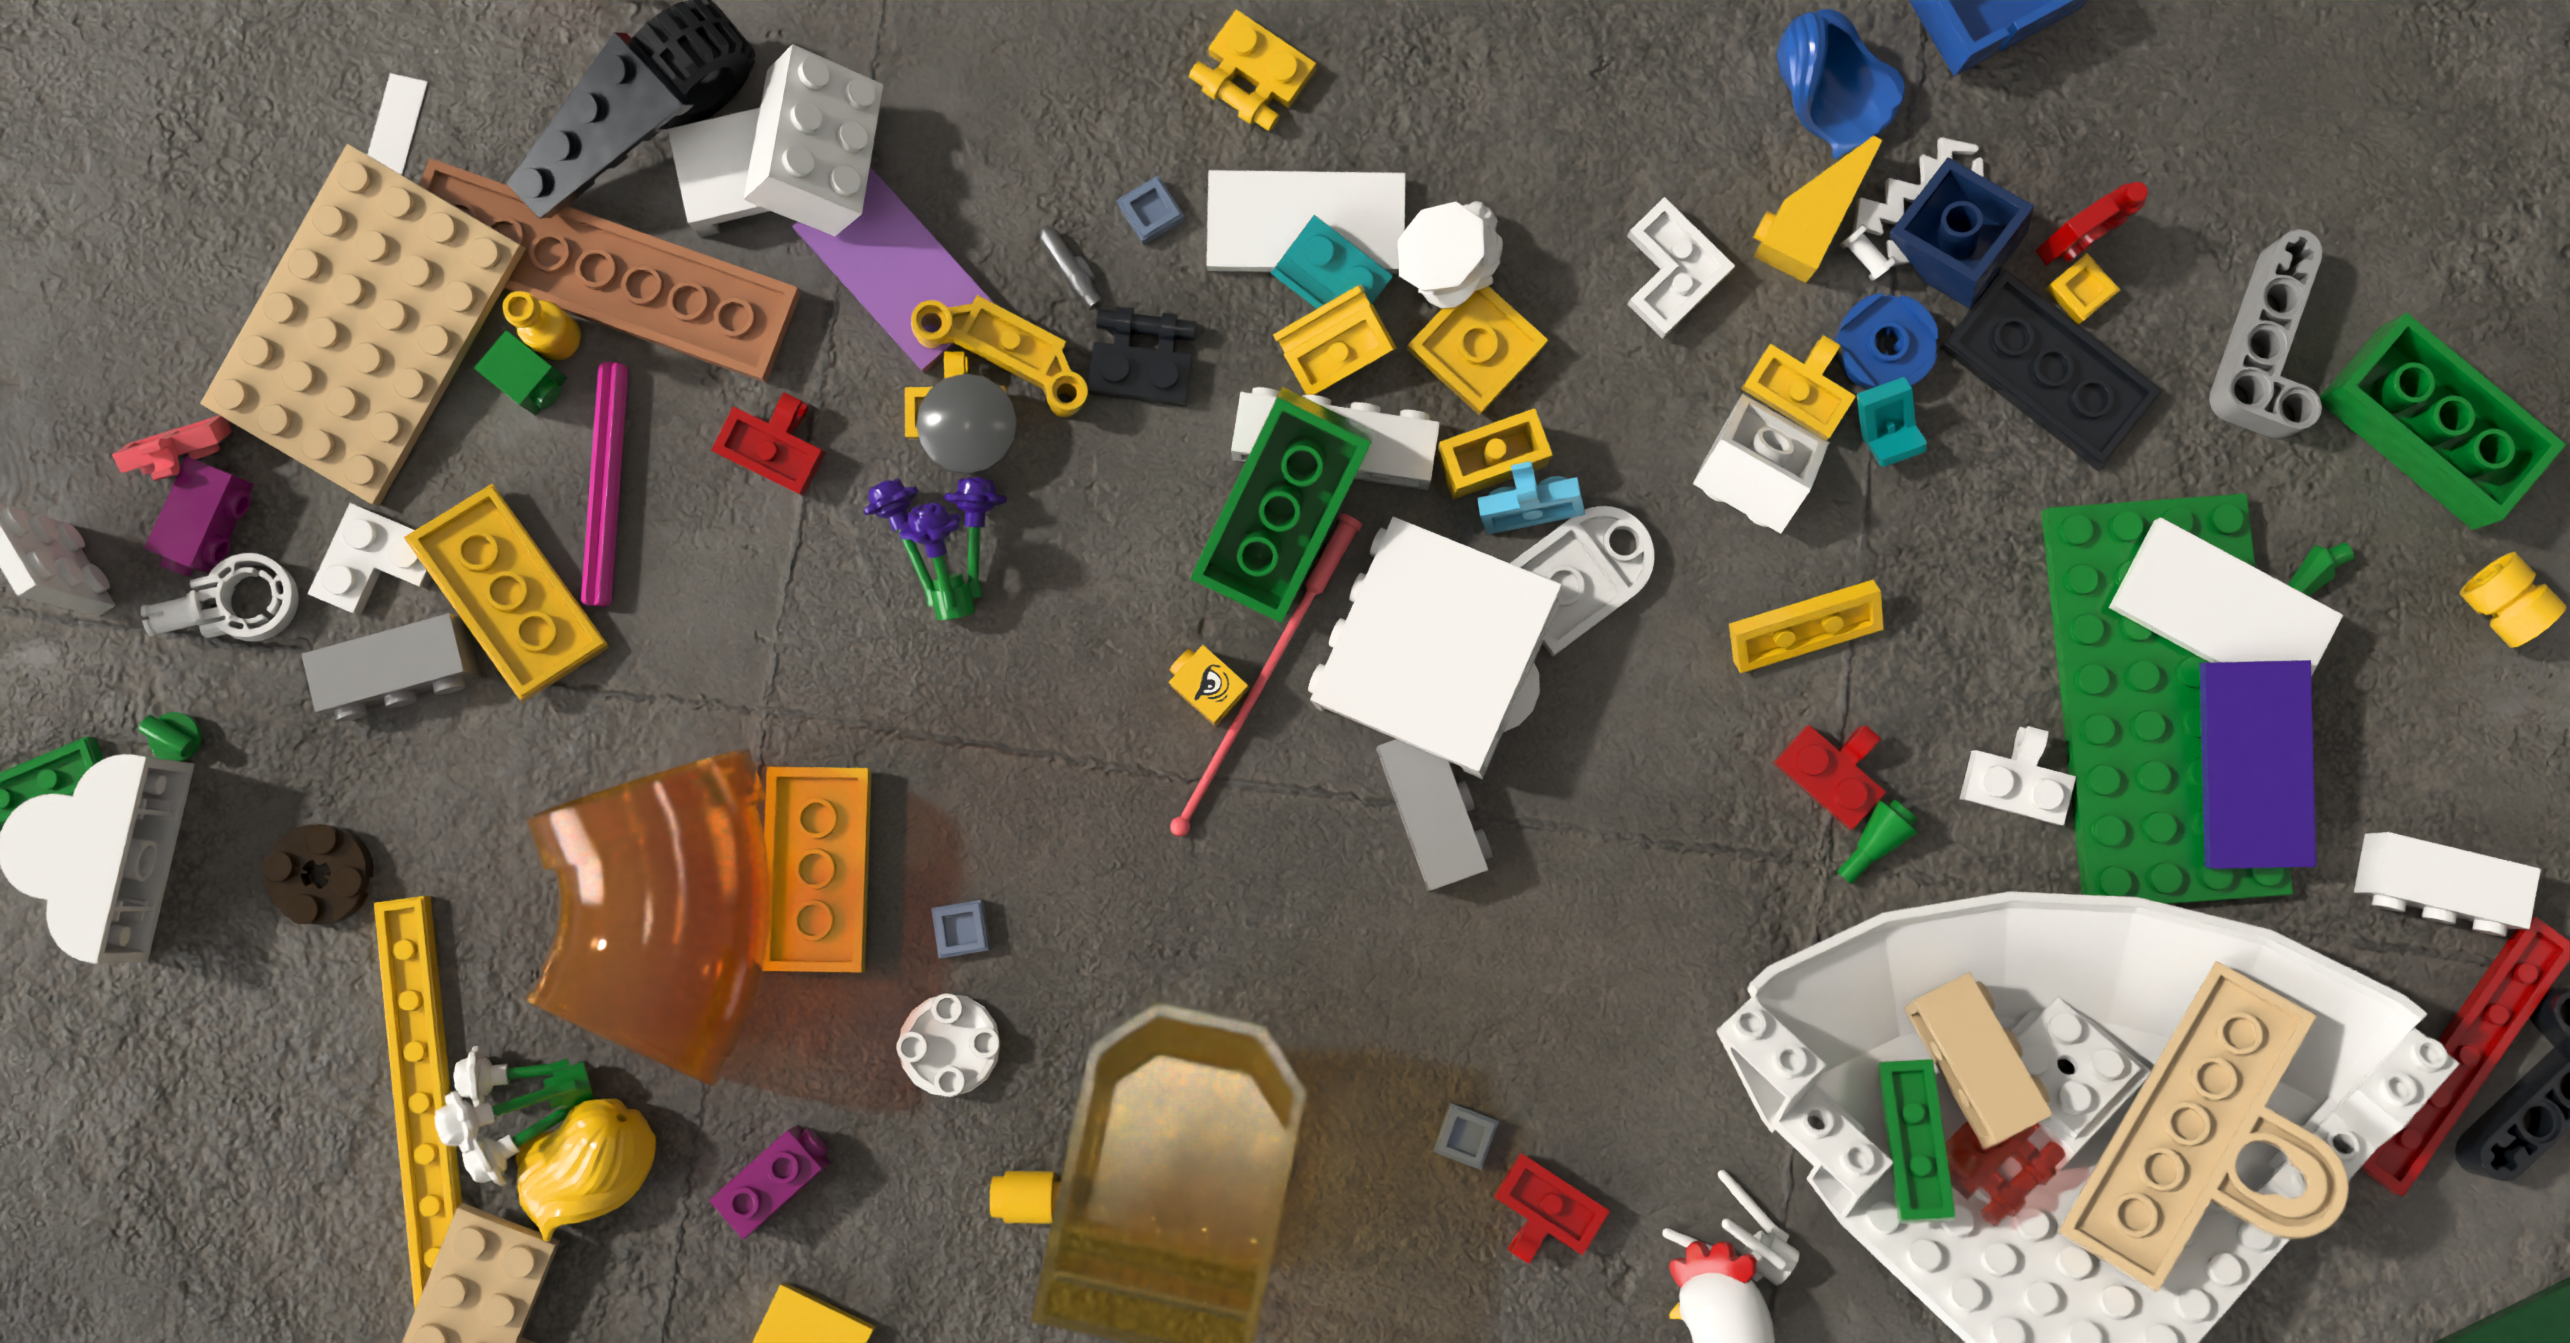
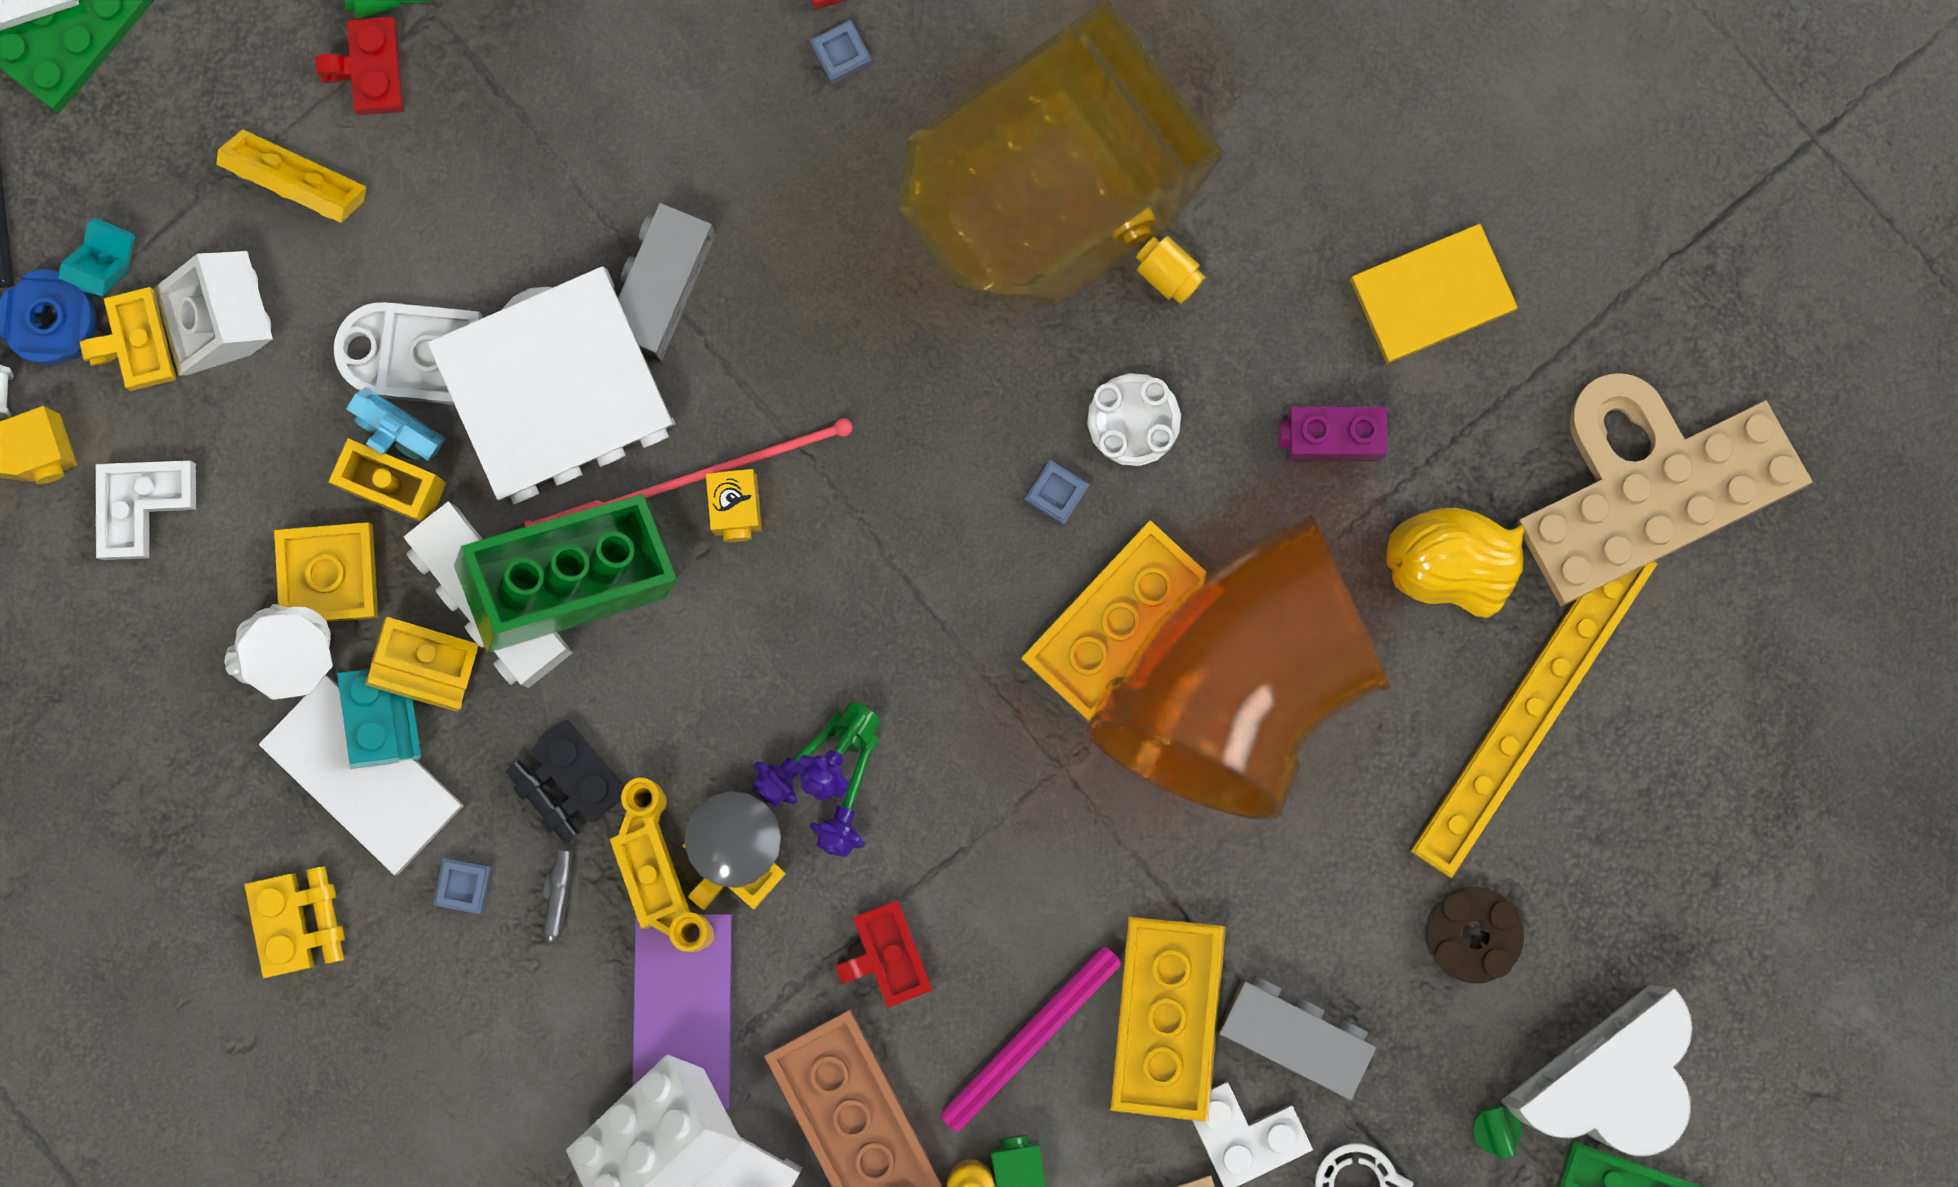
camera: 140 degrees left, 0 degrees up
(474, 1078) = (1507, 646): white plant -> none

